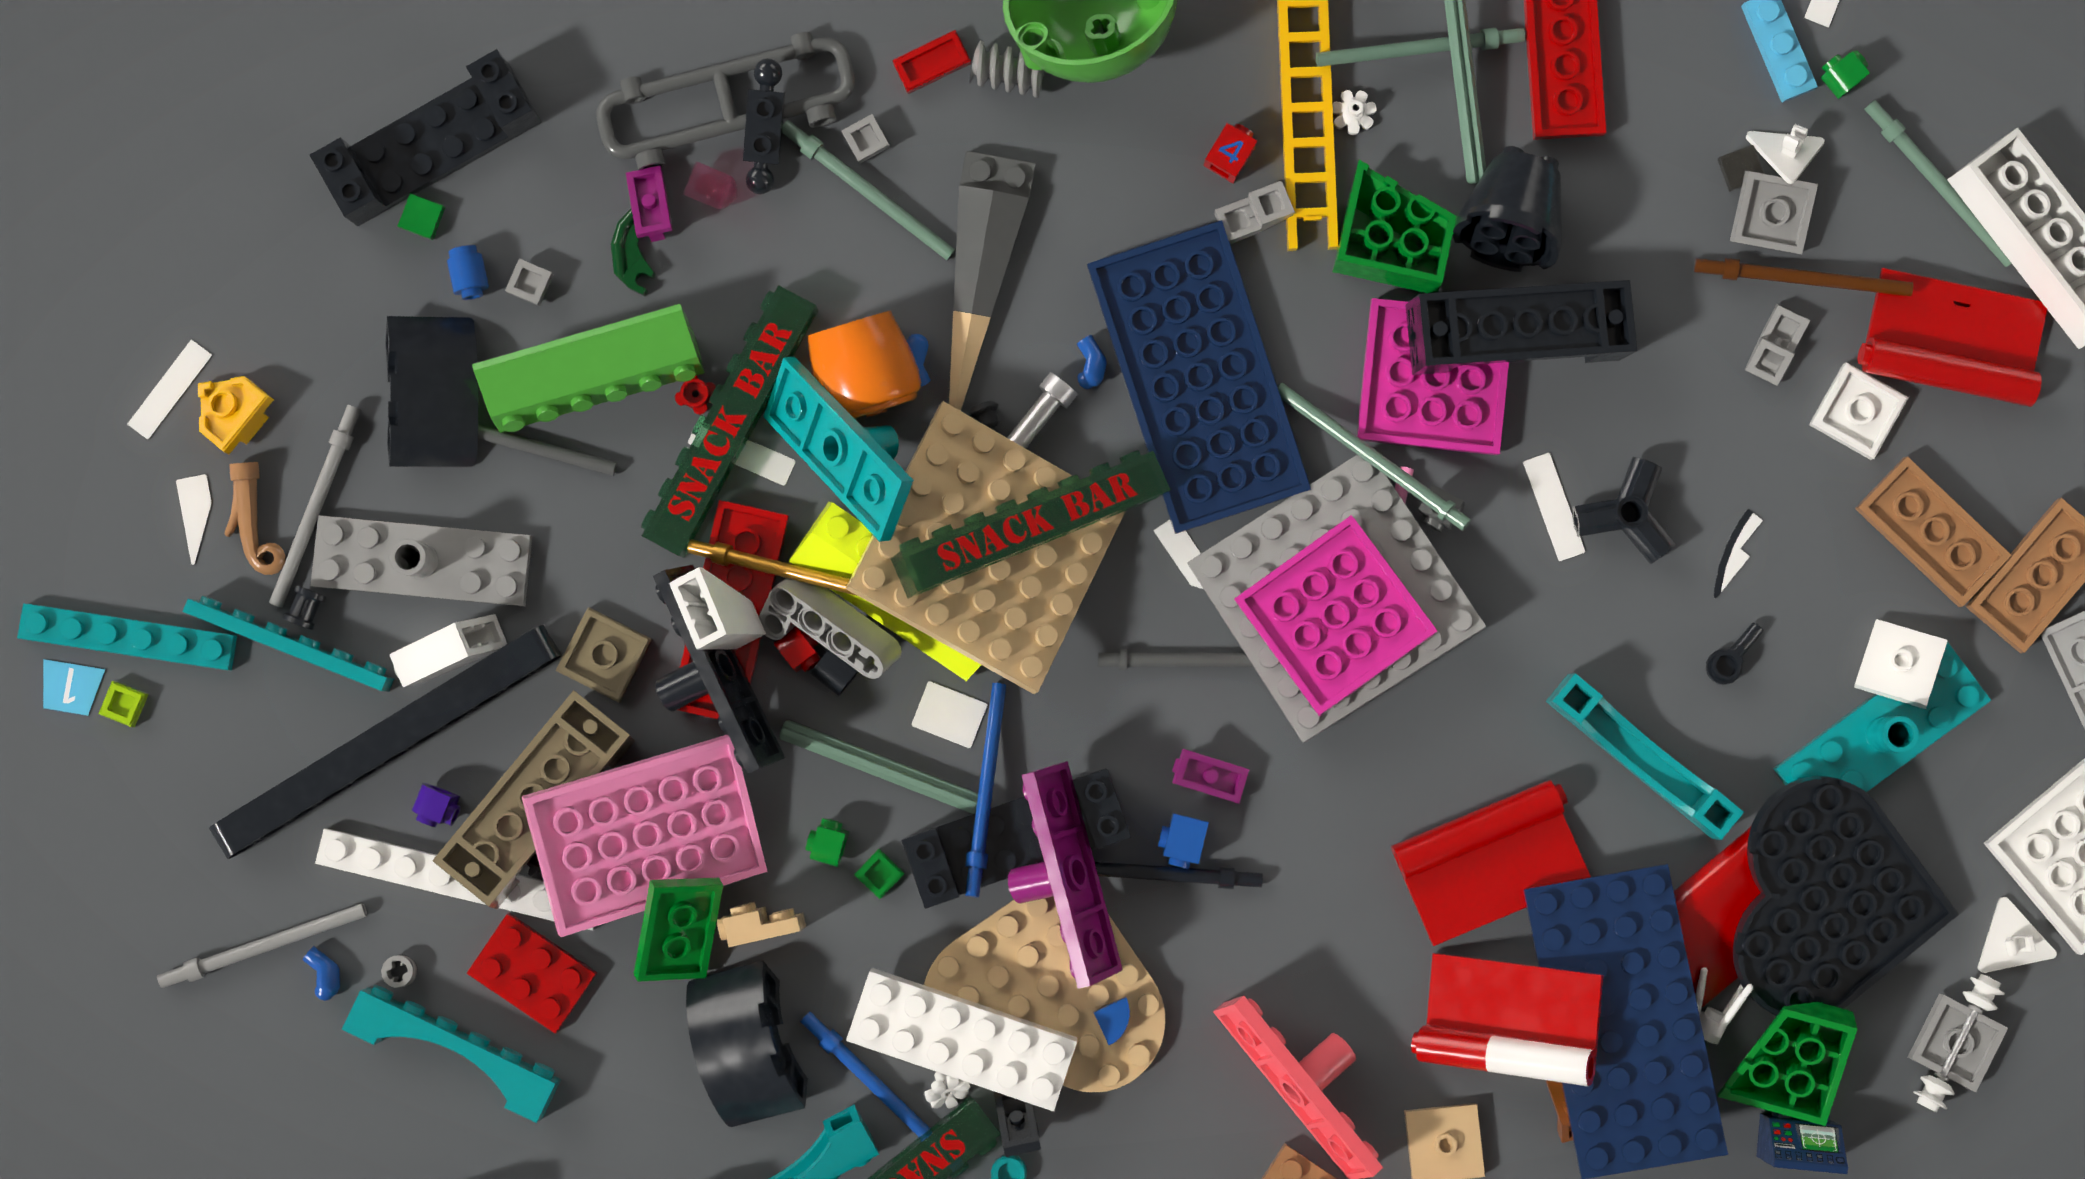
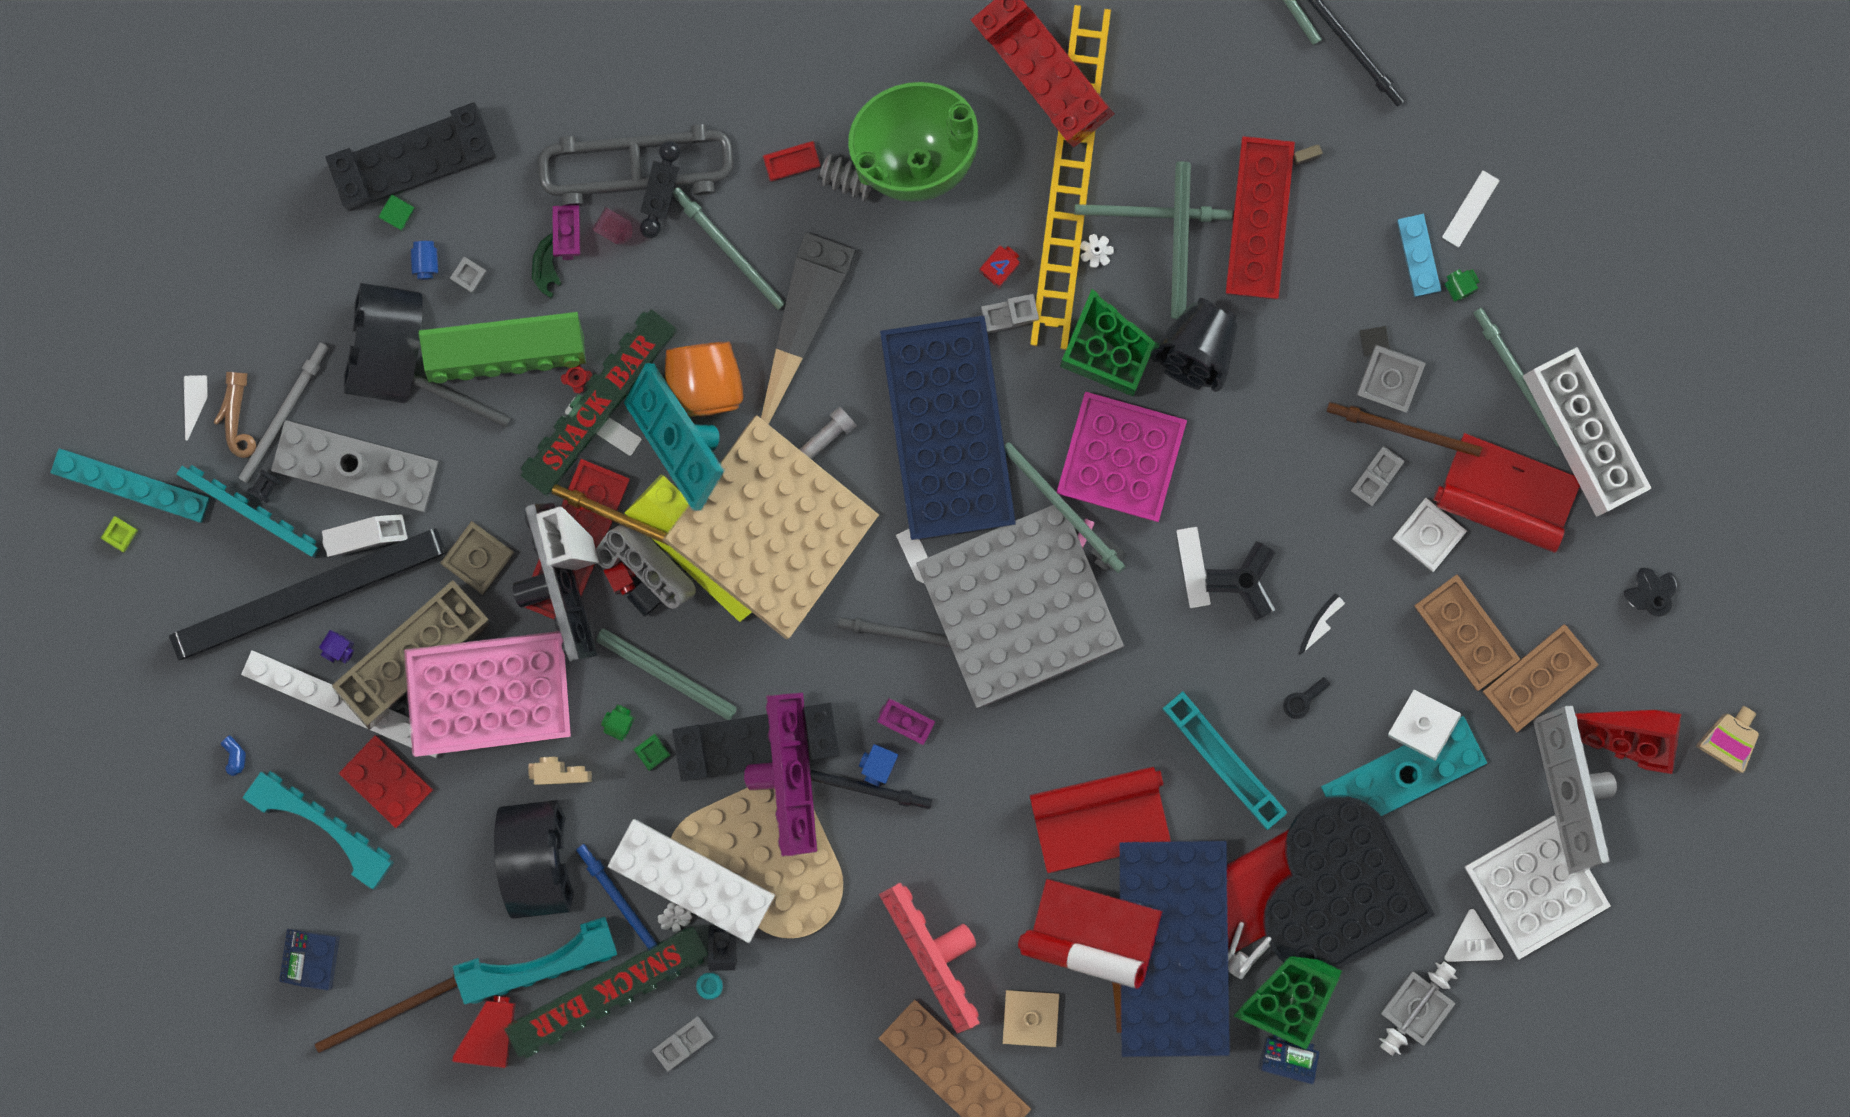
camera: 10 degrees right, 0 degrees up
(70, 686) = (81, 515): medium azure sticker -> none
(169, 389) = (190, 308): white sticker -> none
(197, 968) = (140, 736): light grey bar -> none
(232, 411) = (234, 332): yellow plate -> none
(407, 977) = (283, 758): light grey bush -> none
(678, 929) = (499, 766): green plate -> none
(865, 138) = (733, 210): light grey plate -> none
(919, 348) = (746, 370): blue arm -> none
(949, 714) = (723, 644): white sticker -> none
(977, 859) = (725, 751): blue bar -> none
(985, 413) = (787, 428): black piece -> none
(1028, 524) = (804, 515): clear green brick -> none
(1095, 363) = (873, 406): blue arm -> none
(1113, 1019) = (804, 886): blue tile -> none
(1335, 615) = (1015, 619): dark pink plate -> none
(1521, 325) = (1188, 431): black plate -> none
(1787, 152) = (1409, 335): white piece -> none

